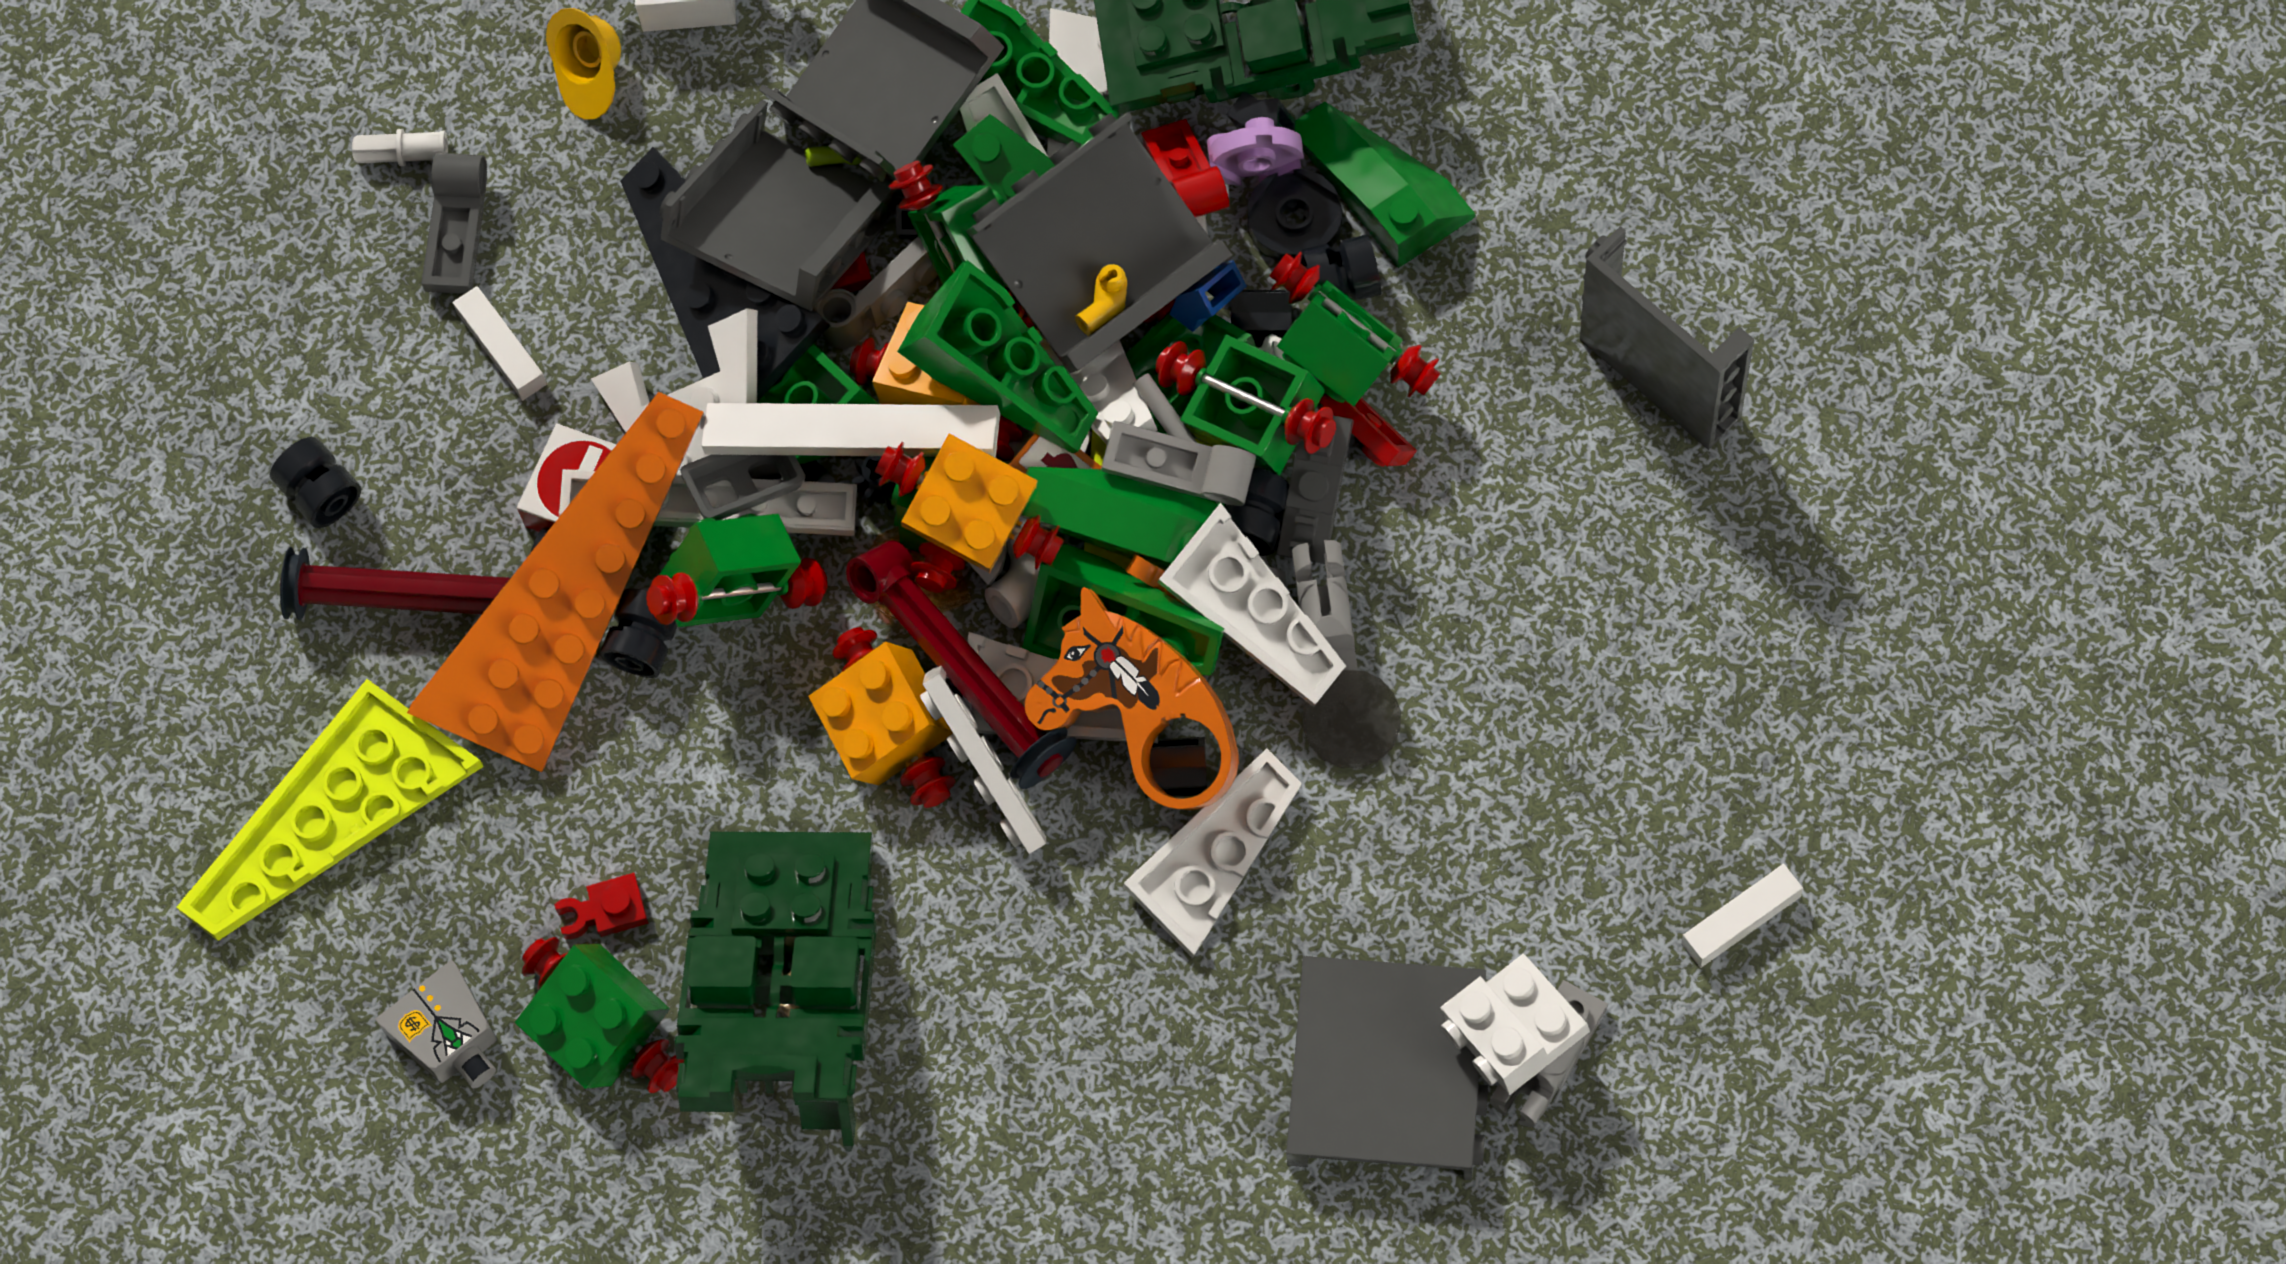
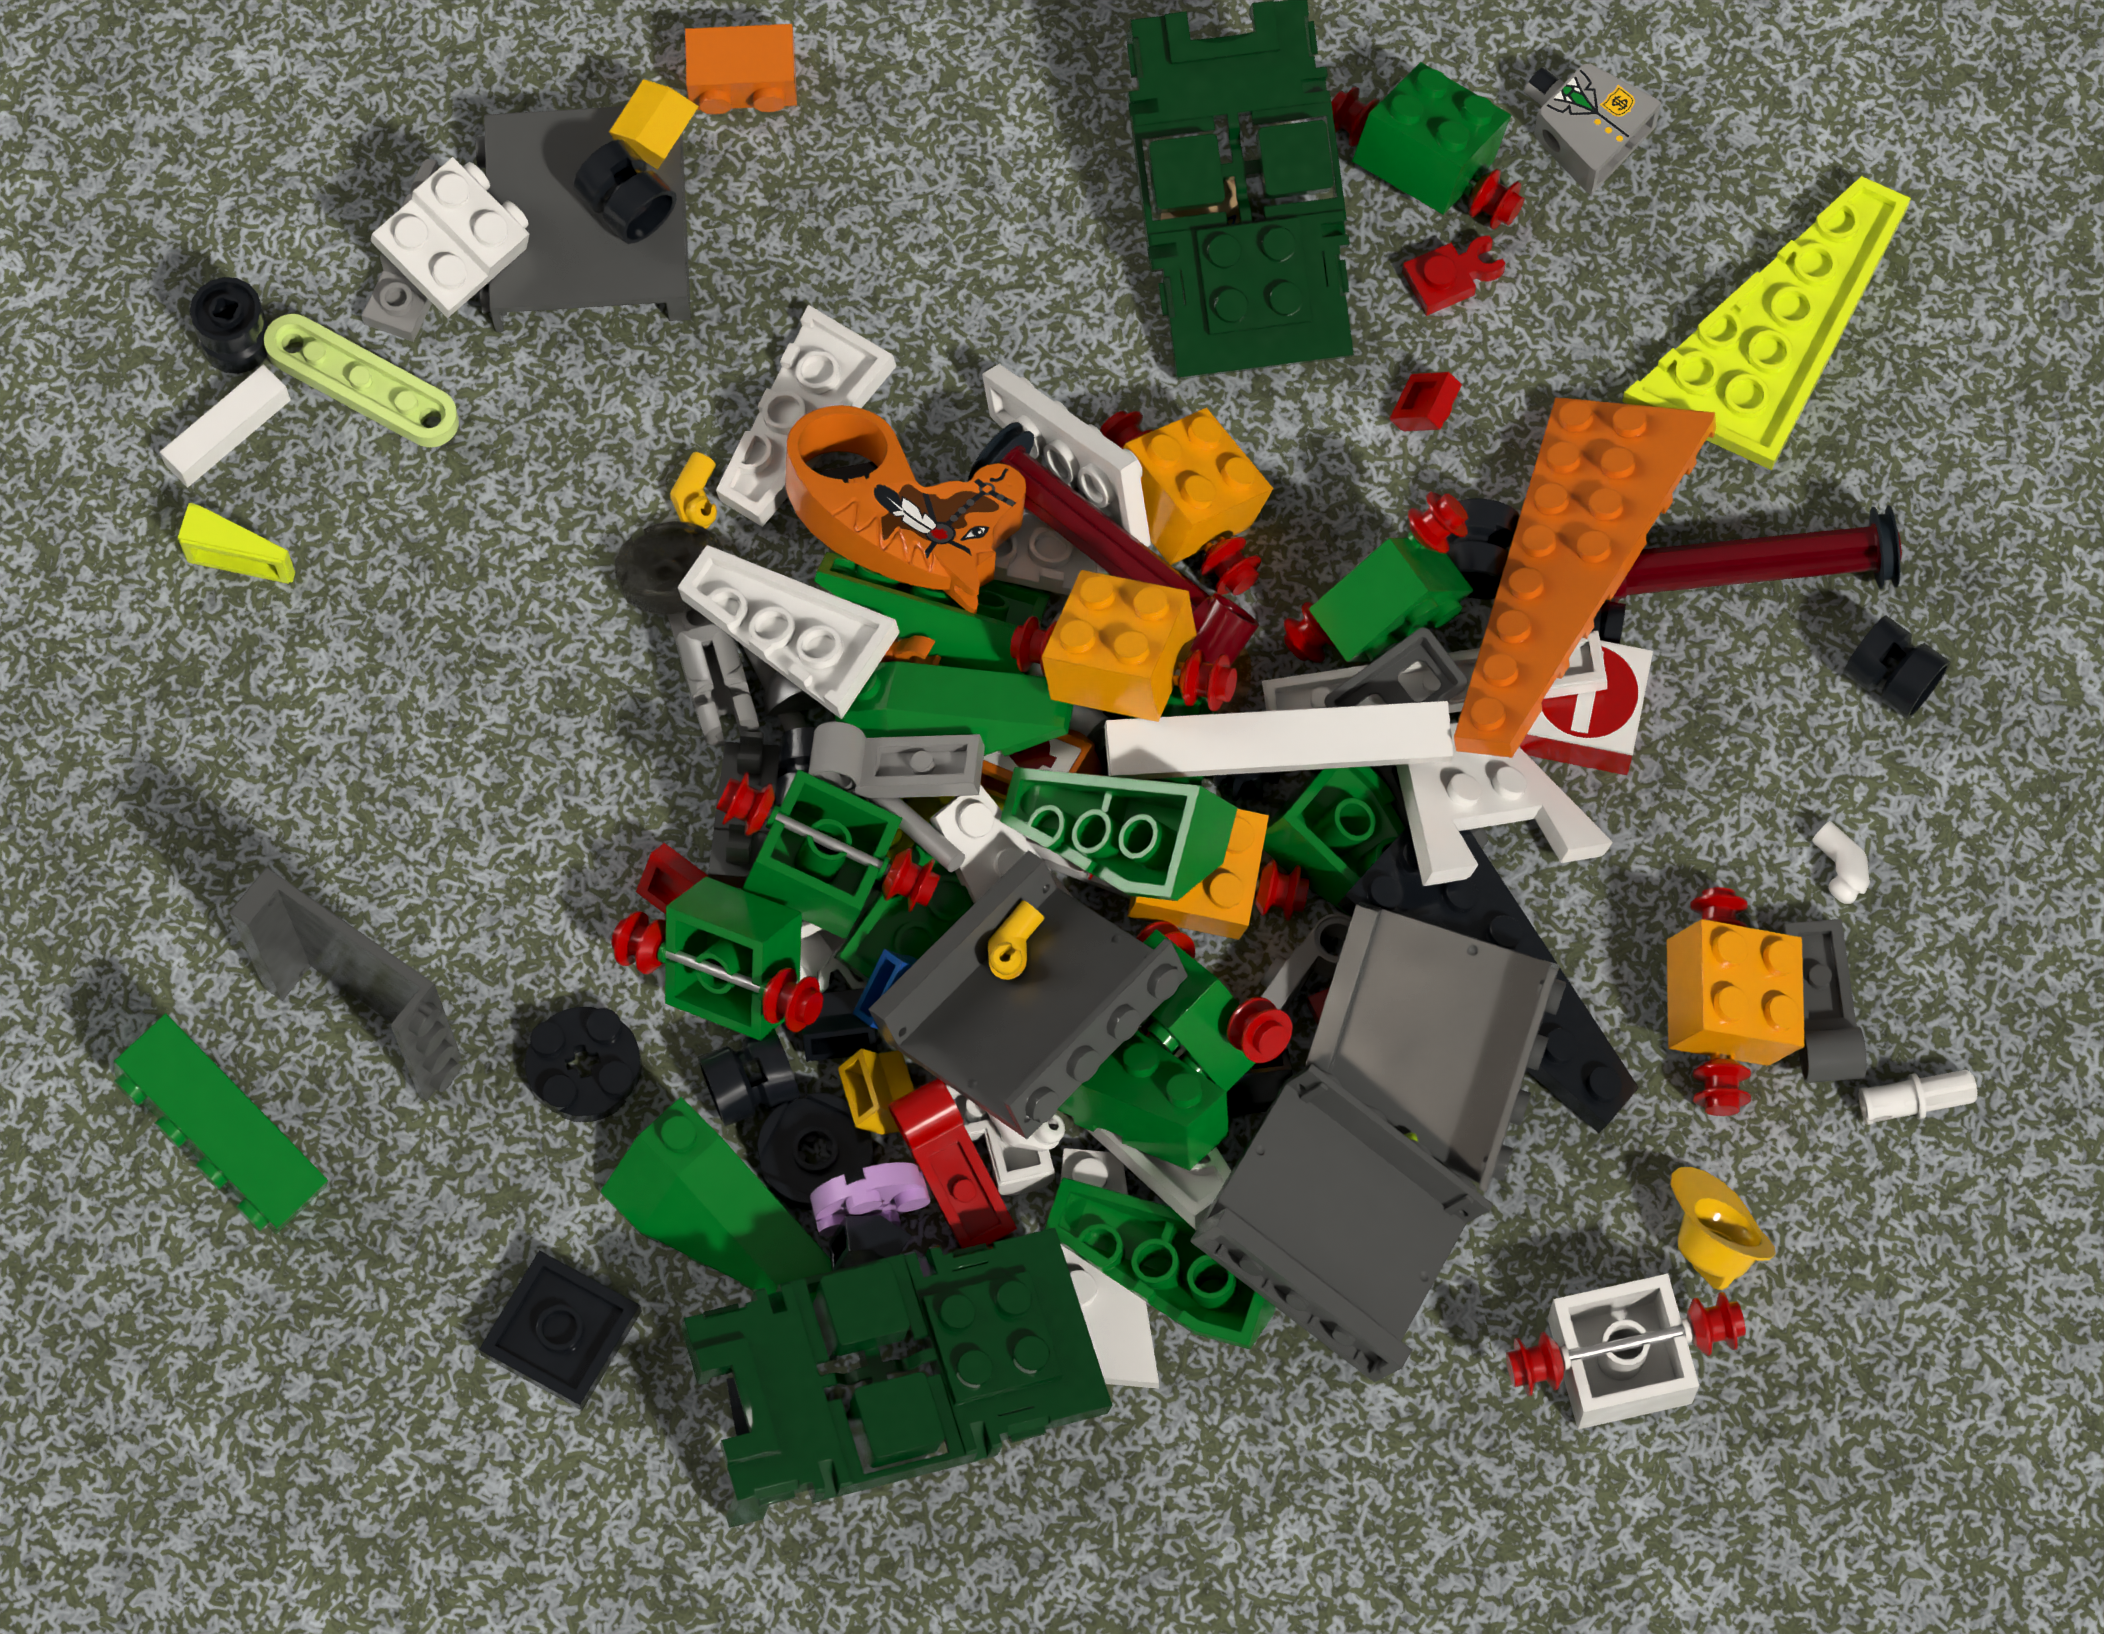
camera: 165 degrees right, 0 degrees up
(399, 338) = (1849, 860): none -> white arm
(499, 343) = (1731, 868): white piece -> none
(525, 229) = (1732, 997): none -> light orange brick
(656, 779) = (1425, 401): none -> red plate
(1222, 1199) = (741, 67): none -> orange brick
(1244, 240) = (871, 1084): none -> yellow piece
(1309, 1116) = (653, 121): none -> yellow piece
(1326, 792) = (689, 494): none -> yellow arm
(1337, 1027) = (621, 187): none -> black wheel
(1493, 292) = (610, 1080): none -> black plate
(1519, 105) = (560, 1330): none -> black plate
(1613, 939) = (361, 380): none -> yellowish green plate
(1729, 998) = (229, 324): none -> black wheel
(1749, 795) = (223, 545): none -> neon yellow slope
(1789, 289) = (218, 1125): none -> green wedge

